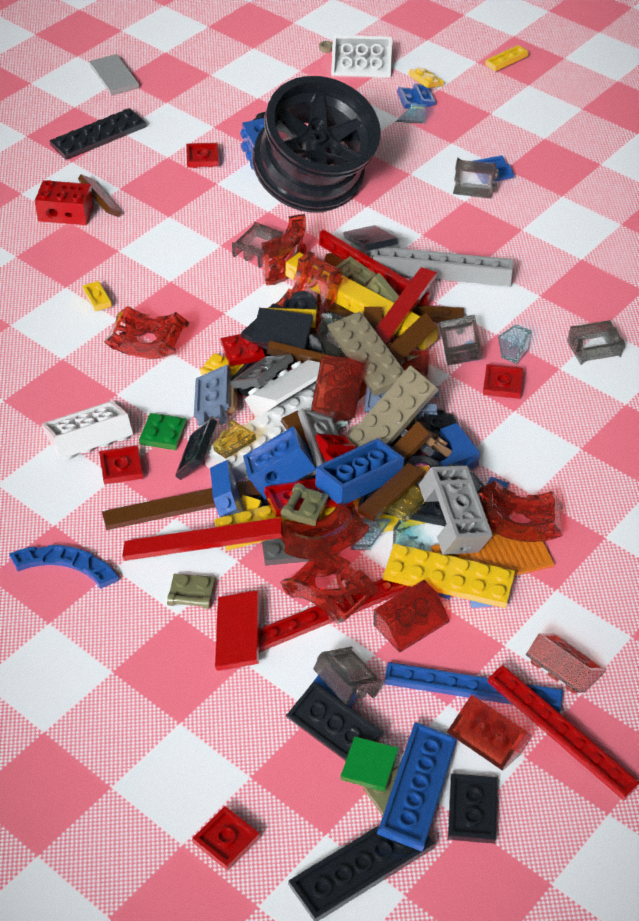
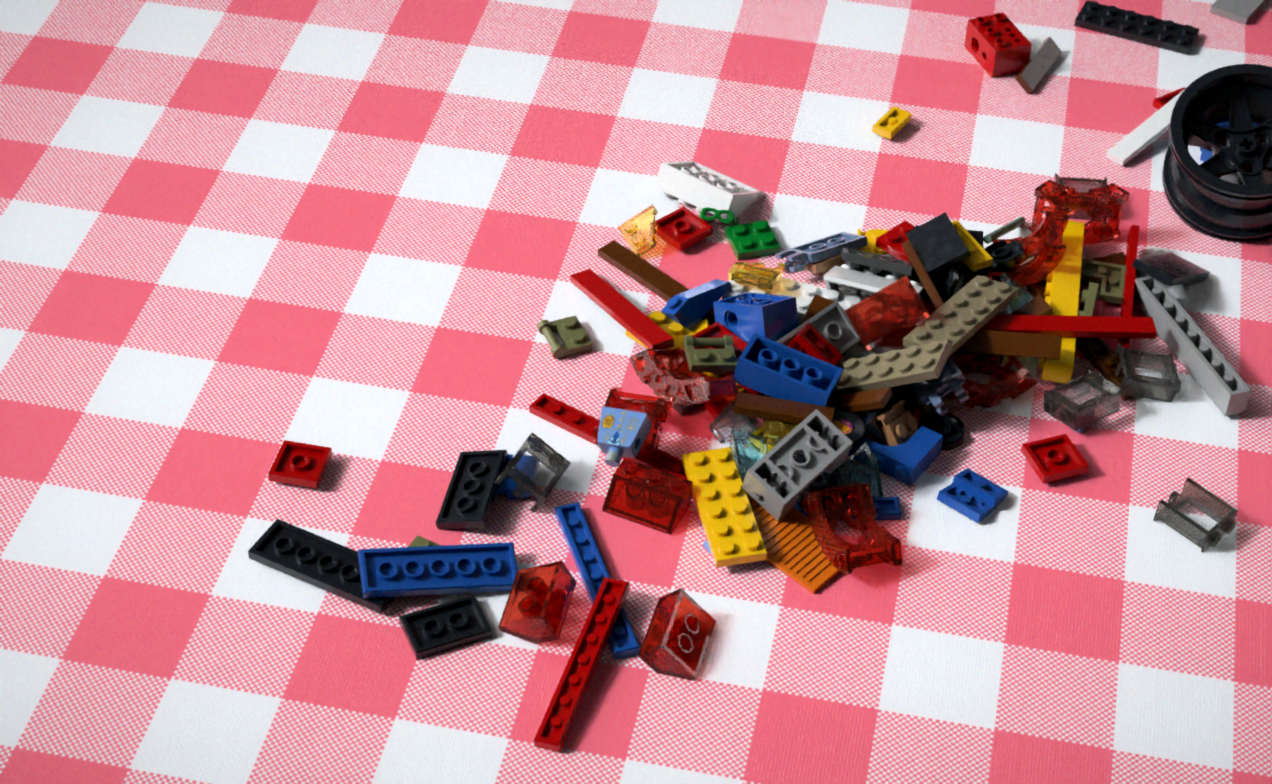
camera: 60 degrees right, 5 degrees down
(68, 557) = (544, 243): blue tile -> none
(106, 490) = (641, 231): none -> clear yellow wing
(119, 443) = (733, 219): none -> green cap
(165, 329) = (885, 178): clear red fence -> none
(196, 448) = (722, 265): black tile -> none
(212, 167) = (1143, 134): none -> white tile
(237, 630) = (538, 383): red tile -> none
(267, 294) = (1004, 230): none -> sand green bar
(357, 597) = (622, 433): none -> medium blue torso
(369, 764) = (438, 524): green tile -> none
(459, 295) = (1146, 374): none -> clear smoke window
(510, 438) = (972, 495): none -> blue slope
(515, 343) = (1122, 453): clear light blue slope -> none

